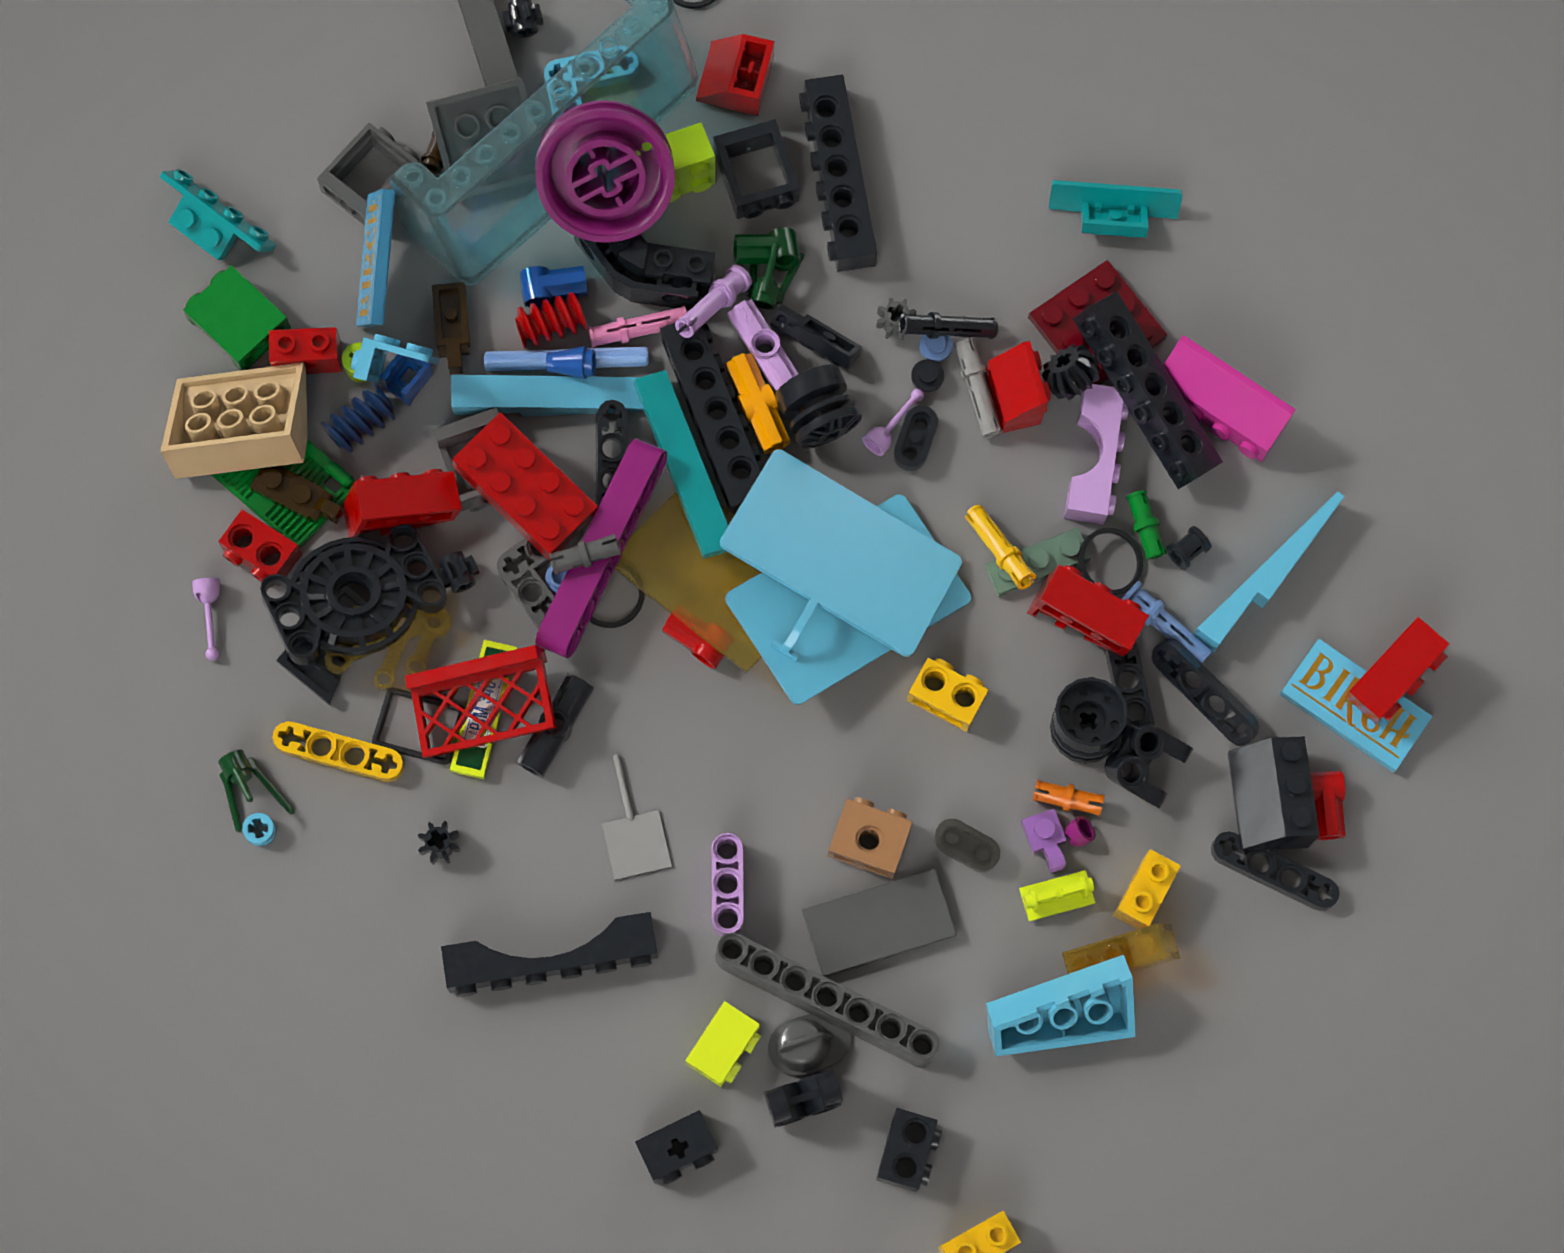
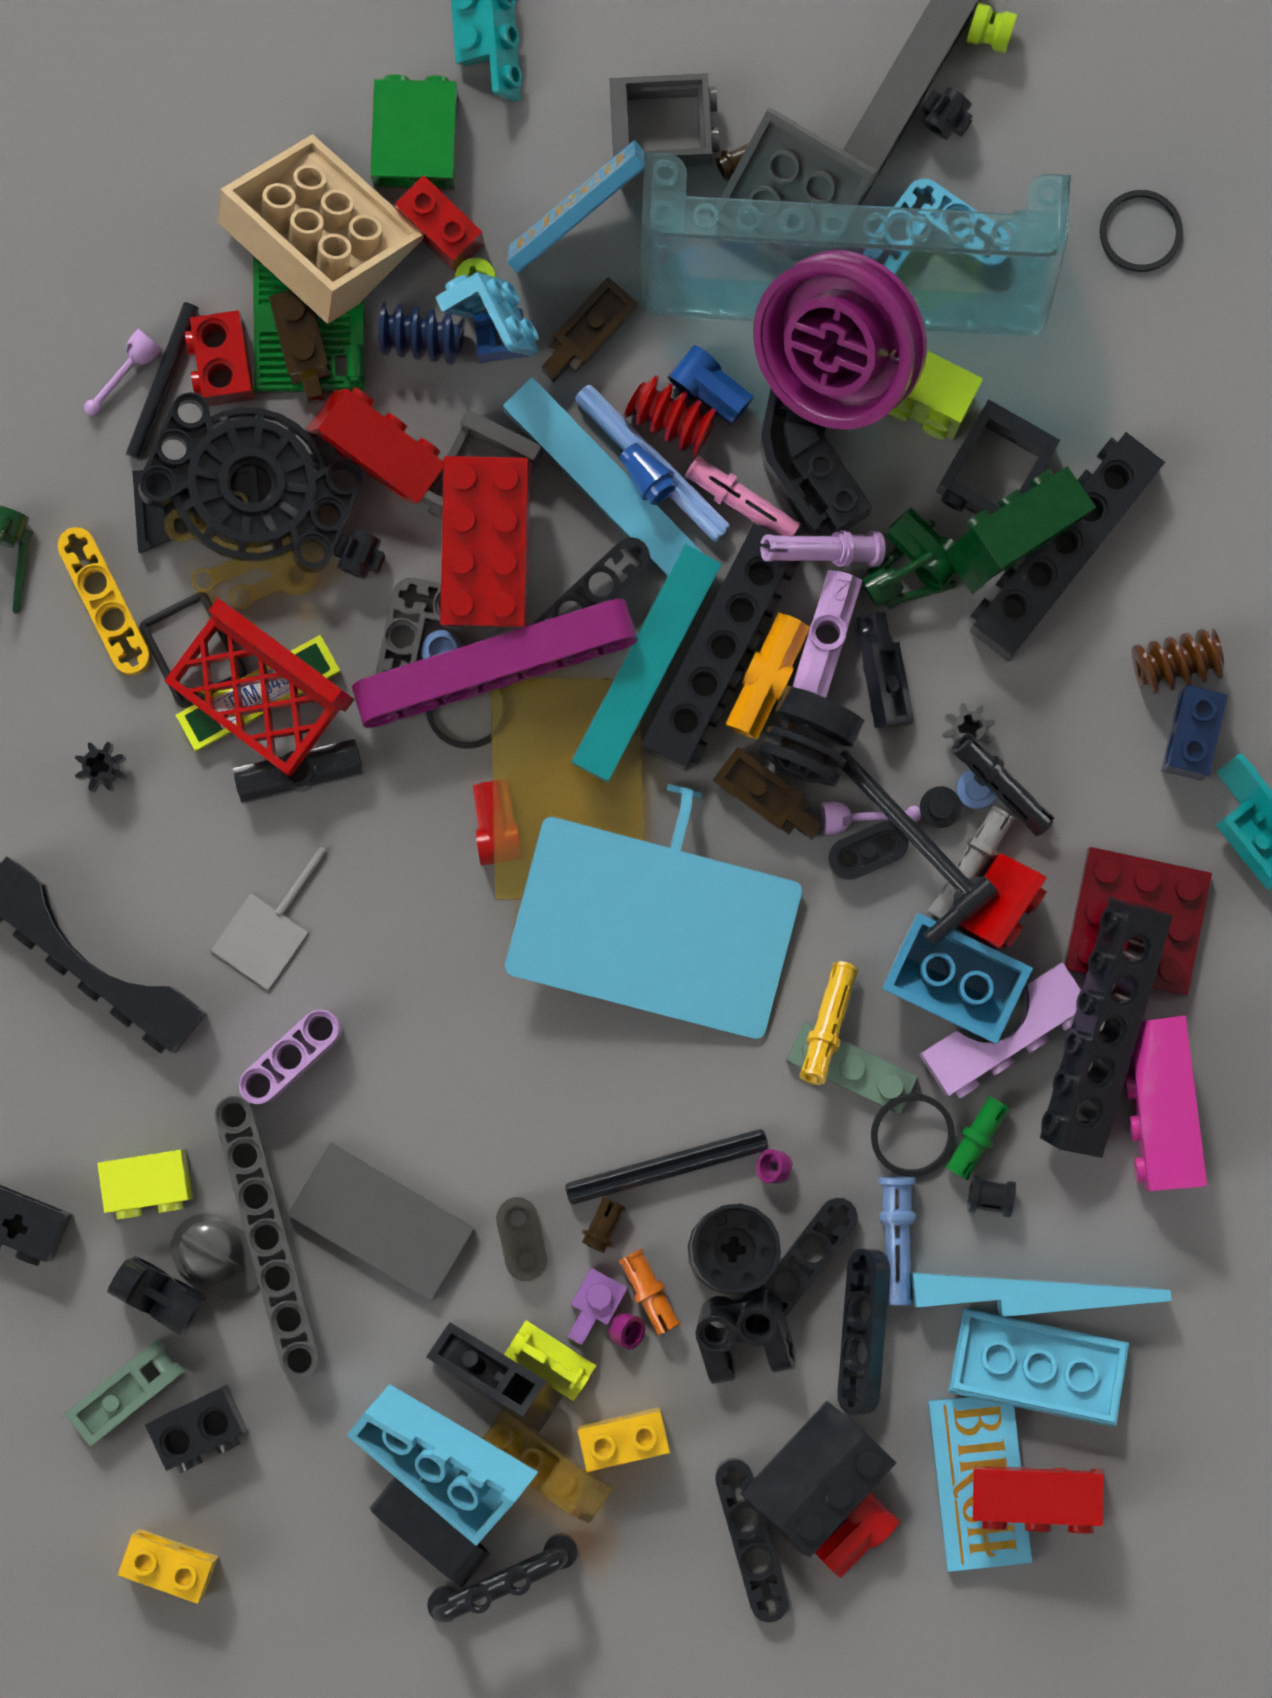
camera: 55 degrees right, 10 degrees up
(237, 598) = (161, 382): none -> black bar
(585, 554) = (467, 656): dark grey pin -> none
(737, 73) = (1076, 361): red slope -> none
(807, 181) = (1019, 527): none -> dark green wedge
(840, 462) = (766, 794): none -> dark brown hinge
(840, 554) = (684, 885): medium azure piece -> none
(843, 1178) = (123, 1393): none -> sand green plate
(862, 819) = (470, 1155): medium nougat brick -> none
(943, 702) = (636, 1099): yellow brick -> none
(965, 170) = (1178, 660): none -> reddish brown piece
(999, 395) = (970, 894): none -> black bar
(999, 721) = (666, 1166): none -> black axle
(1003, 790) = (603, 1225): none -> dark brown pin
(1016, 197) = (1194, 732): none -> dark blue brick
(1039, 448) = (957, 979): none -> dark azure slope
(1039, 935) = (495, 1376): none -> black slope
(1053, 650) = (765, 1162): none -> magenta hinge
(1071, 371) = (1058, 940): black gear -> none
(1089, 609) = (840, 1159): red wedge -> none
(1099, 1061) = (428, 1533): none -> black beam
(1182, 997) = (448, 1603): none -> black bar
(1316, 610) = (1038, 1367): none -> medium azure tile

